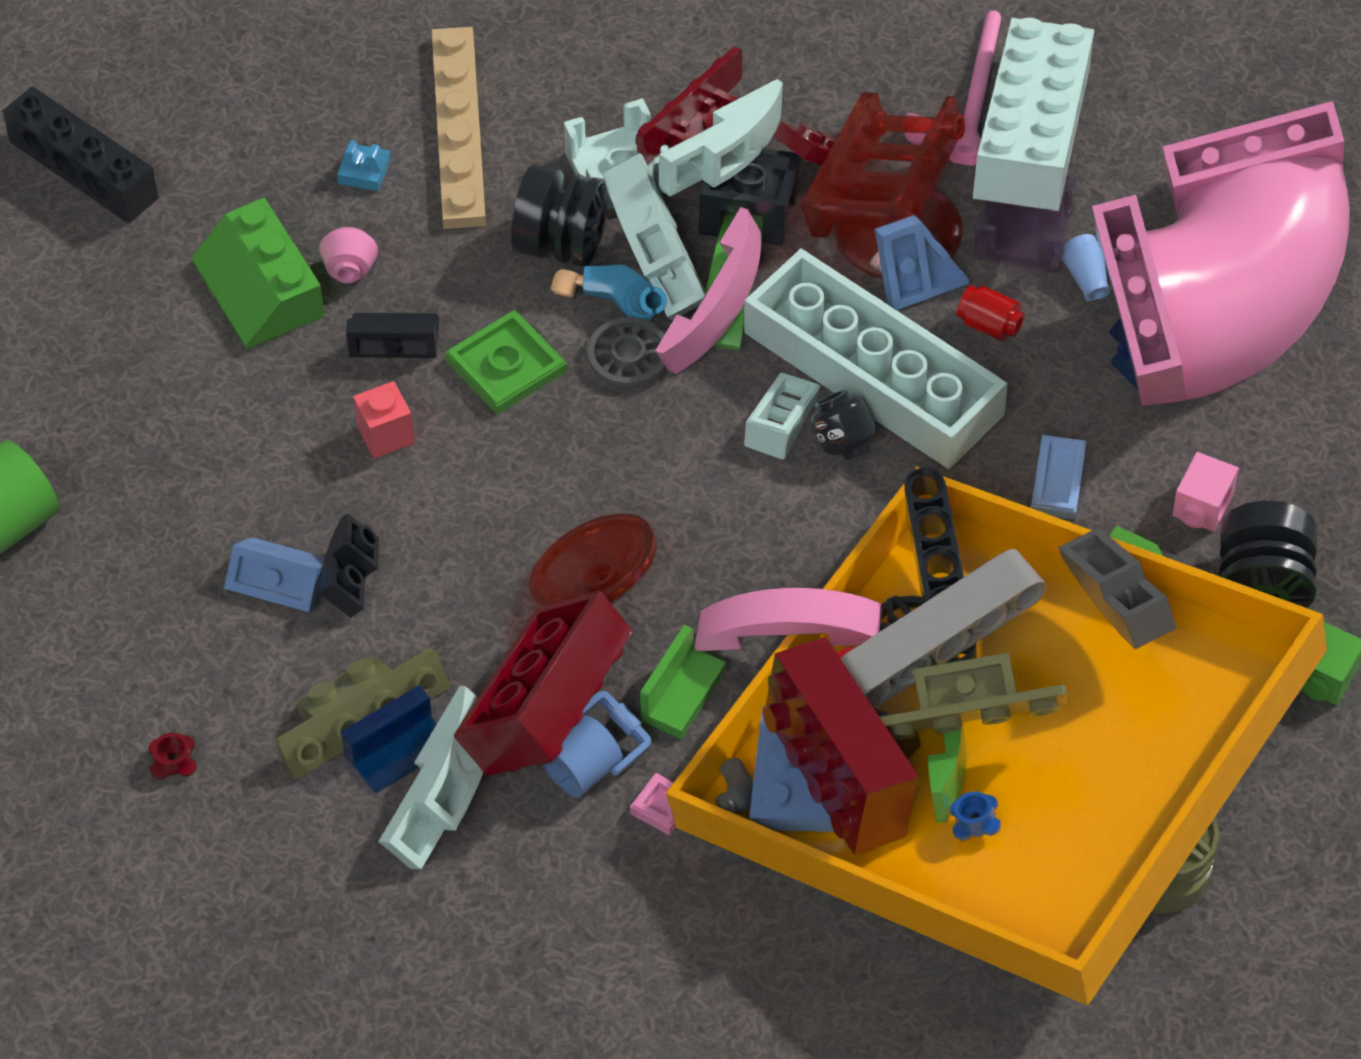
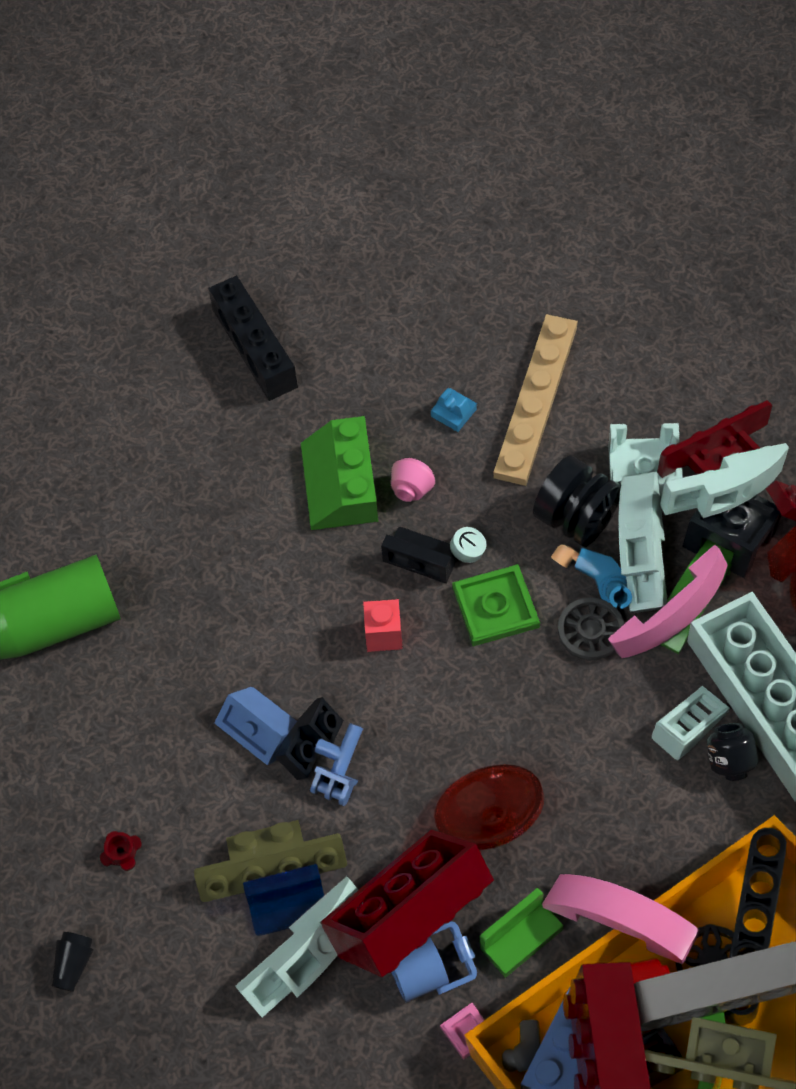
camera: 25 degrees right, 5 degrees up
(166, 885) = (70, 960): none -> black cone
(398, 571) = (342, 757): none -> medium blue arm
(446, 306) = (468, 544): none -> light aqua tile

